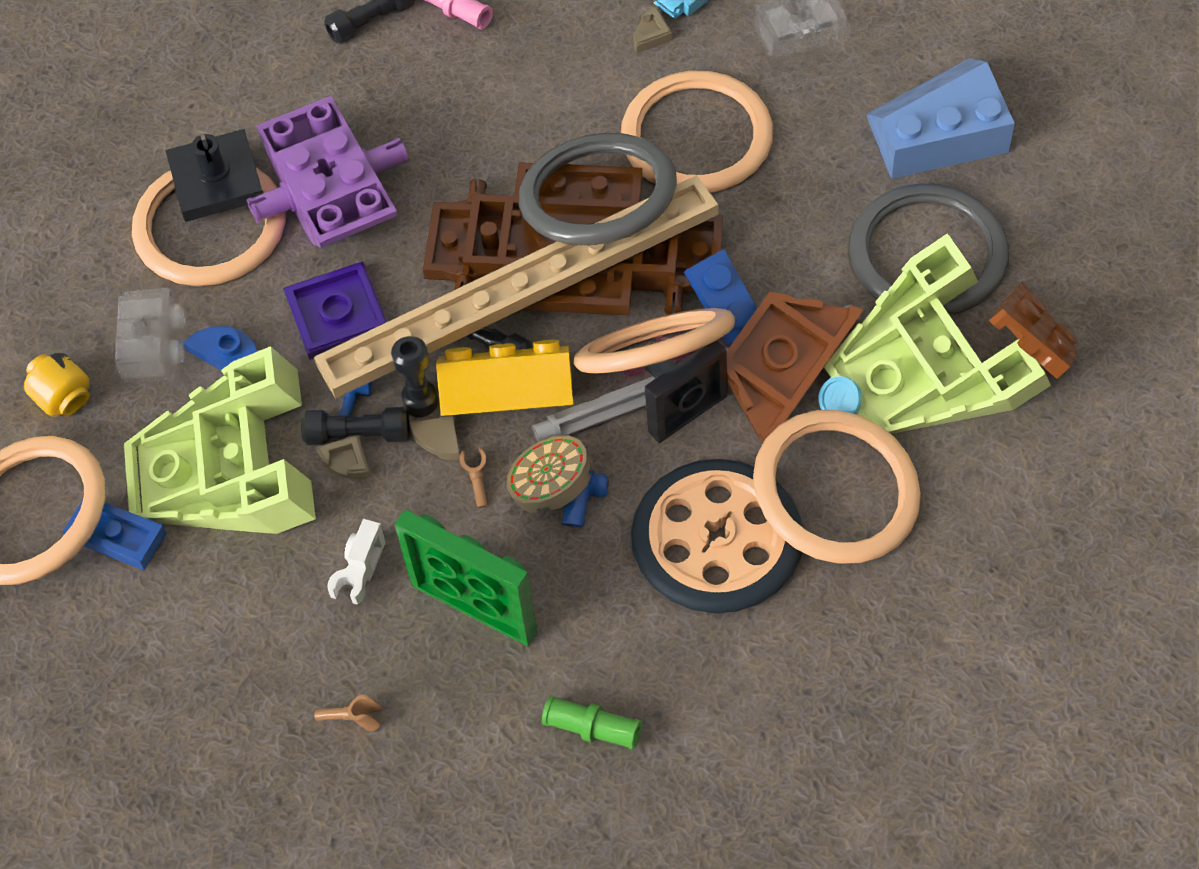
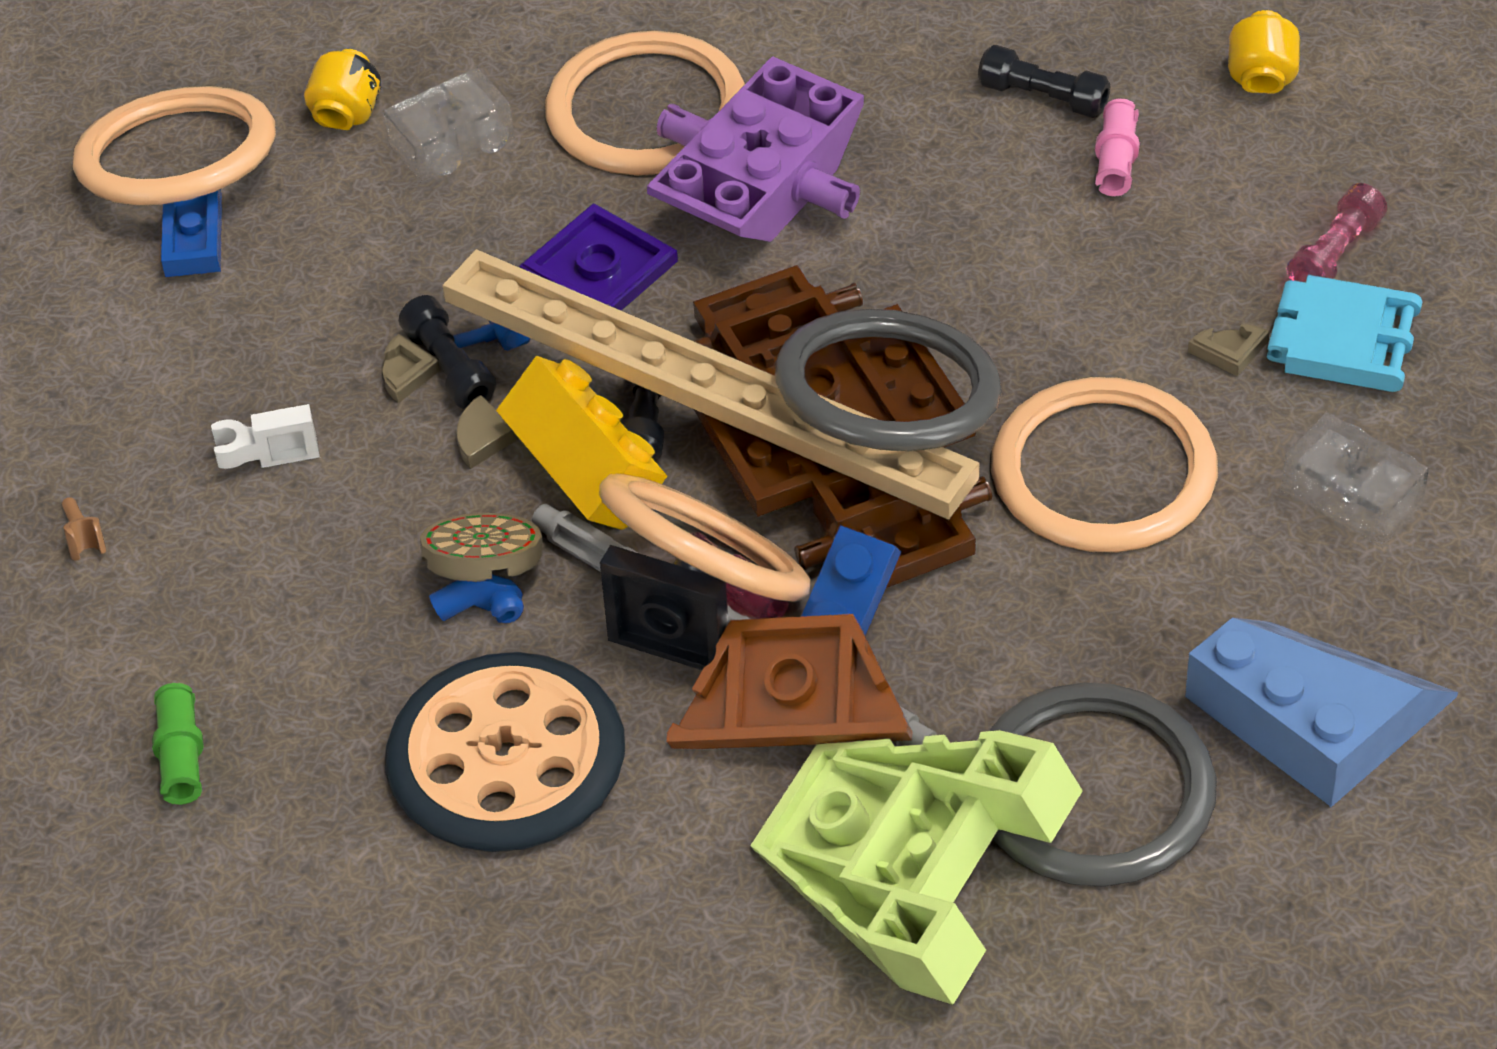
camera: 60 degrees right, 10 degrees down
(212, 455) = (338, 259): yellowish green wedge -> none
(213, 174) = (695, 65): black tile -> none
(220, 345) = (480, 205): blue plate -> none
(411, 359) = (513, 322): black piece -> none
(467, 576) = (265, 518): green plate -> none
(476, 477) = (459, 475): medium nougat hand -> none
(809, 543) = (651, 931): light nougat wedge -> none
(840, 394) = (781, 784): medium azure piece -> none
(1036, 330) = (998, 925): dark orange wing -> none

